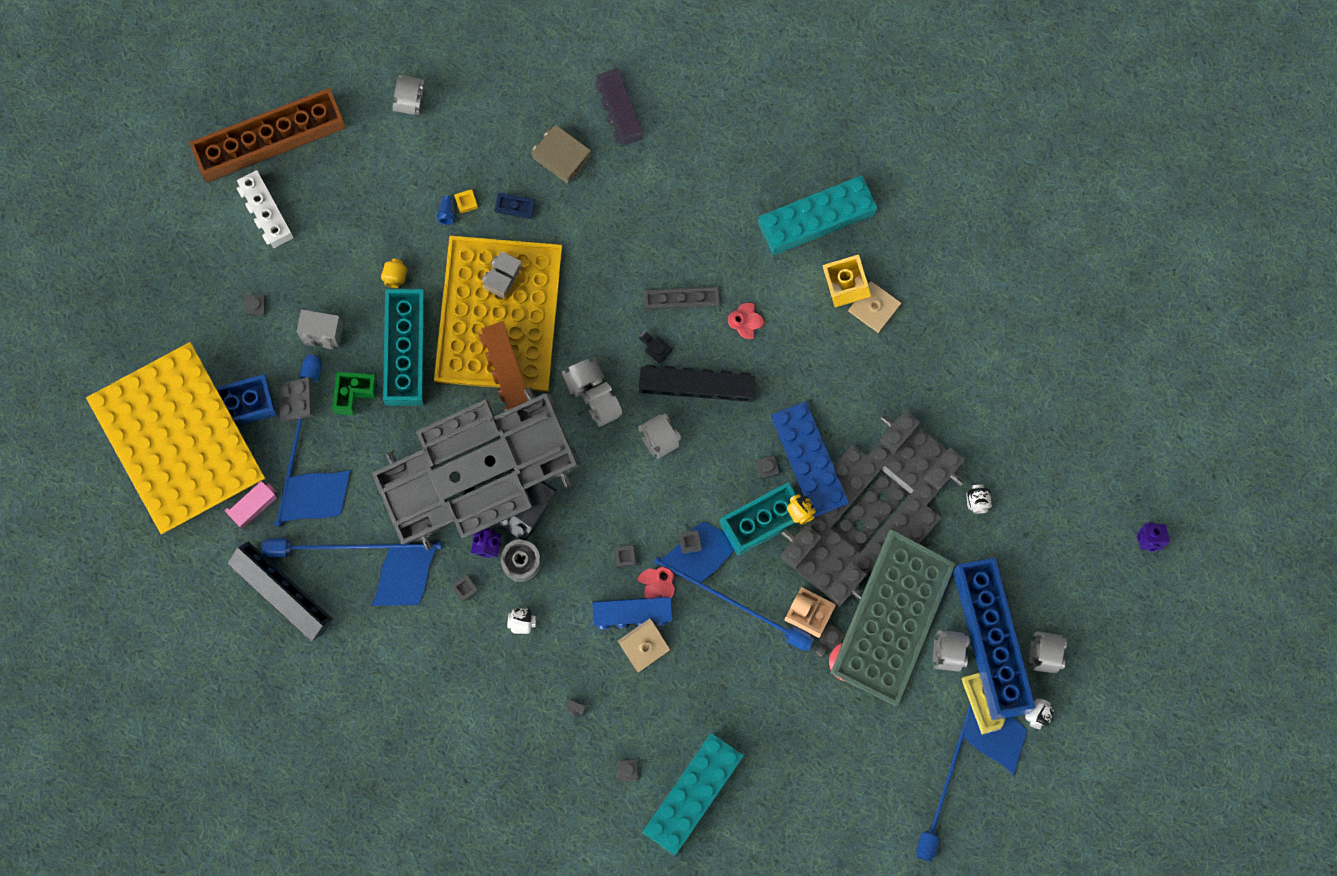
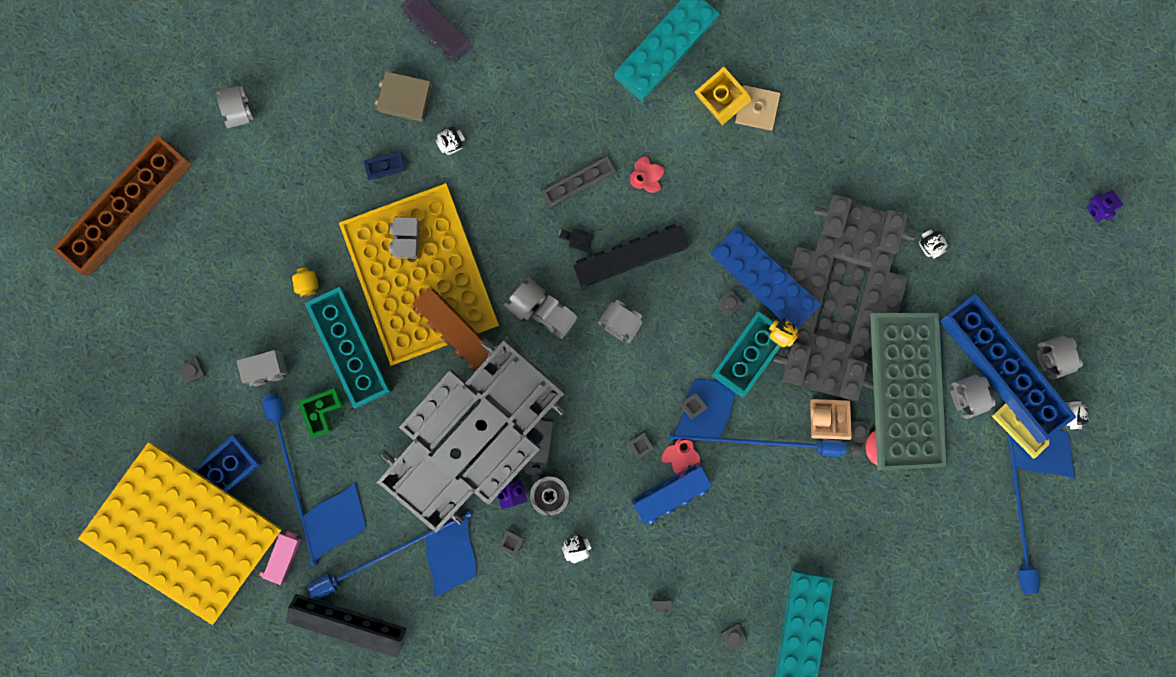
camera: 20 degrees left, 10 degrees up
(264, 208) = (155, 277): white brick -> none
(296, 399) = (274, 442): dark grey plate -> none
(446, 212) = (324, 200): blue cone -> none
(466, 201) = (337, 182): yellow plate -> none
(583, 210) = (450, 140): none -> head
(643, 645) = (696, 519): tan plate -> none

